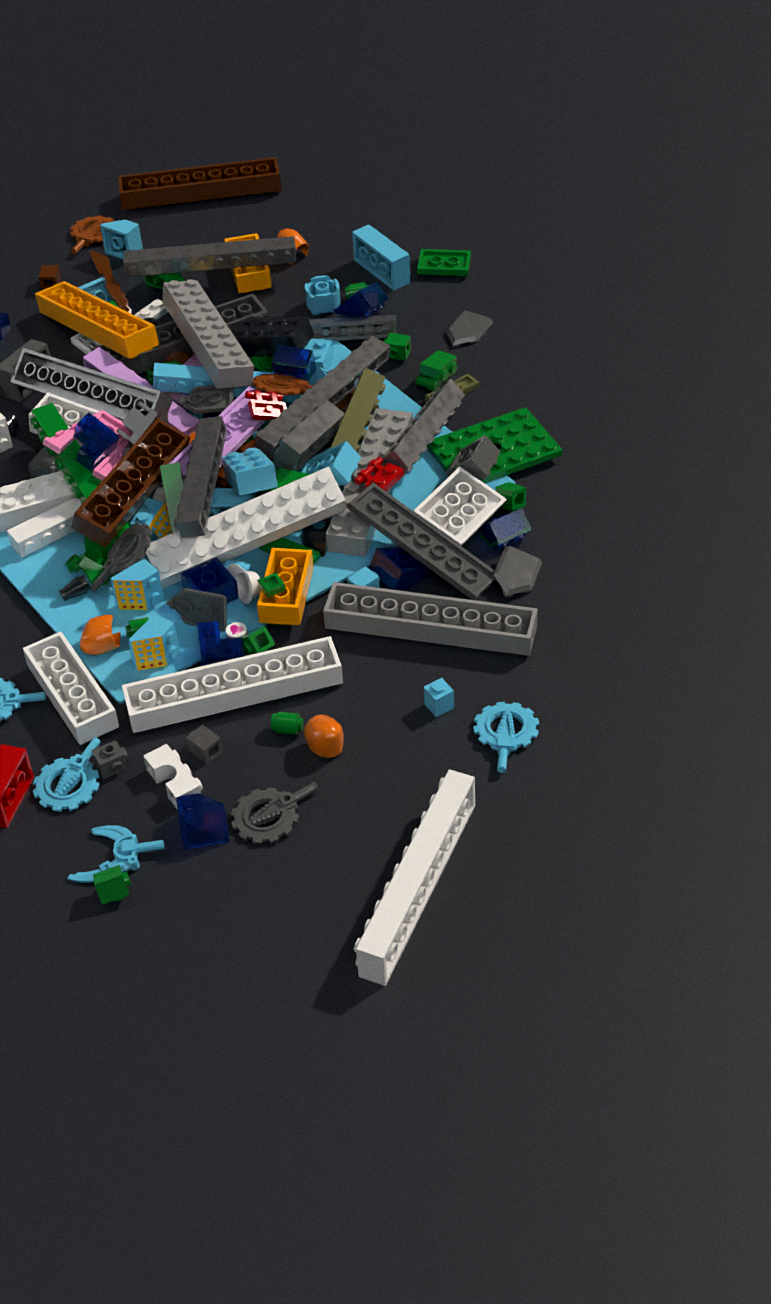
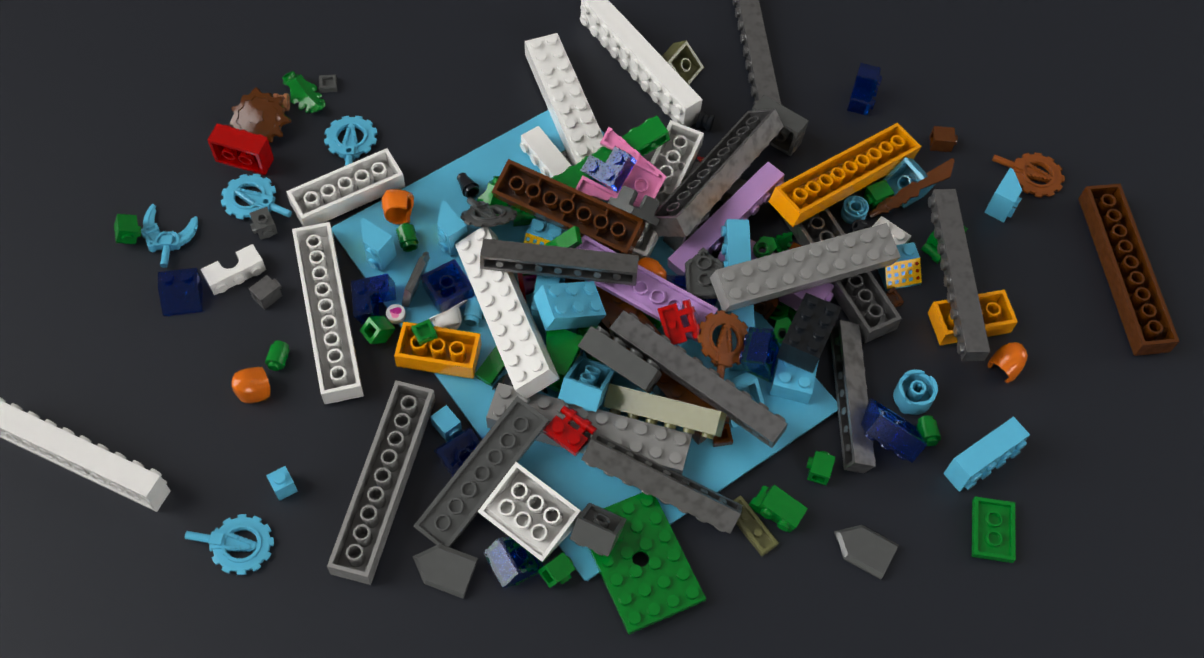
camera: 85 degrees right, 15 degrees up
(277, 805) = (187, 352): dark grey bar -> none

